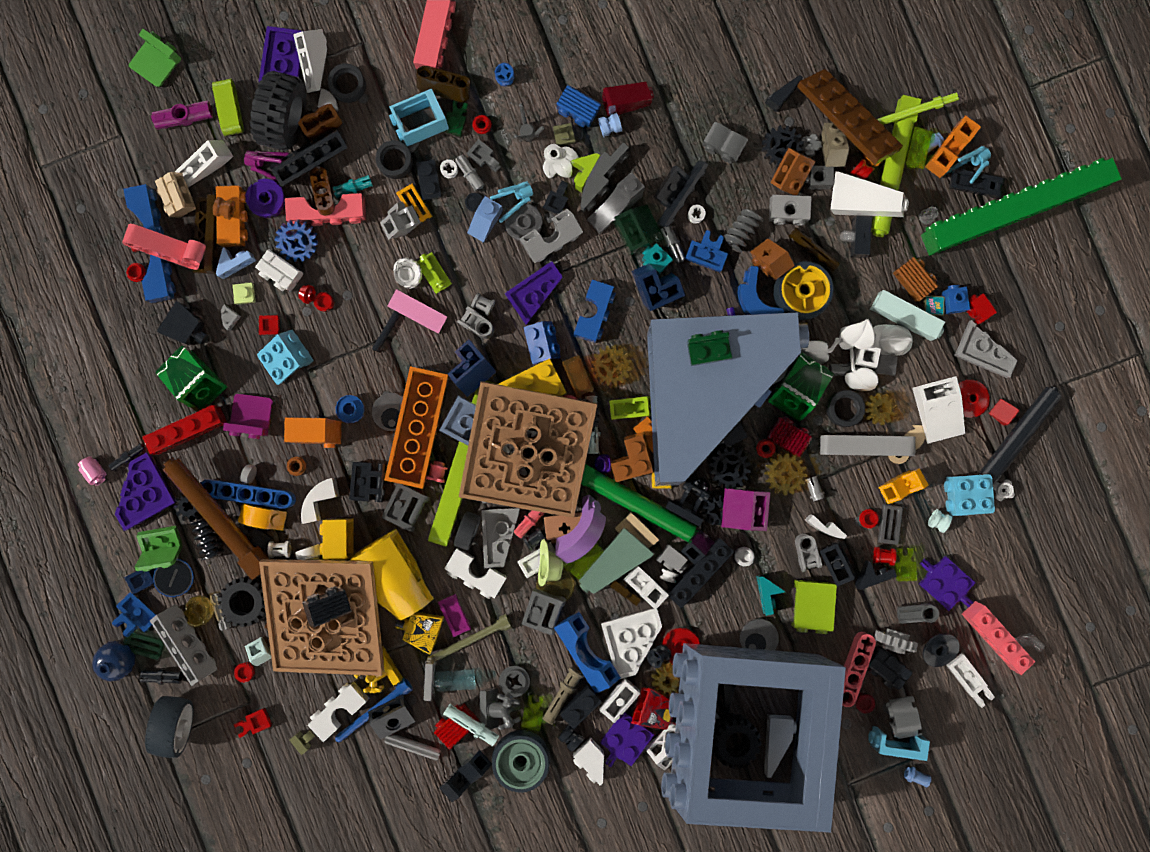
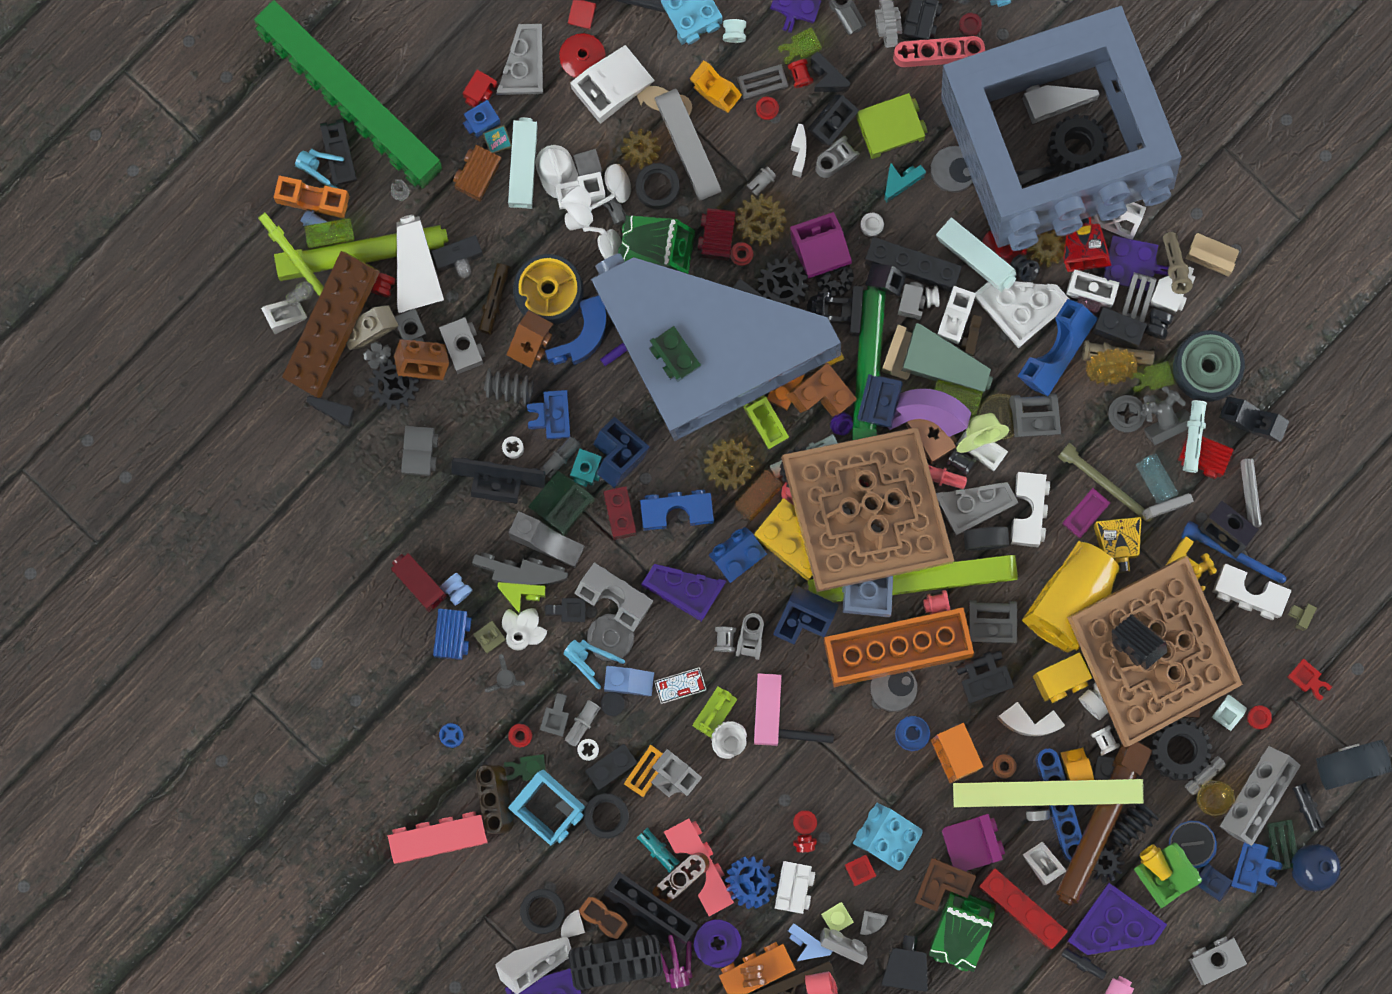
camera: 120 degrees left, 5 degrees down
(73, 563) = (1231, 960): none -> light grey brick
(172, 543) = (1155, 861): none -> yellow cone
(209, 461) = (1044, 863): none -> white slope
(219, 286) = (844, 946): none -> light grey plate
(235, 381) = (942, 877): none -> reddish brown plate
(251, 494) = (1048, 793): none -> yellowish green tile
(464, 256) = (680, 685): none -> tile
(553, 686) = (1111, 366): none -> clear yellow gear
(581, 726) = (1144, 278): none -> light grey tile
(604, 773) = (1178, 269): none -> dark tan pin
(605, 804) = (1212, 254): none -> tan panel
(606, 498) = (880, 401): none -> dark blue plate
(607, 693) = (1092, 306): none -> clear pink tile
(611, 268) = (619, 513): none -> dark red brick
(684, 624) = (976, 255): none -> light aqua brick
(872, 87) = (283, 315): none -> white slope
(883, 107) = (303, 291): none -> clear pin

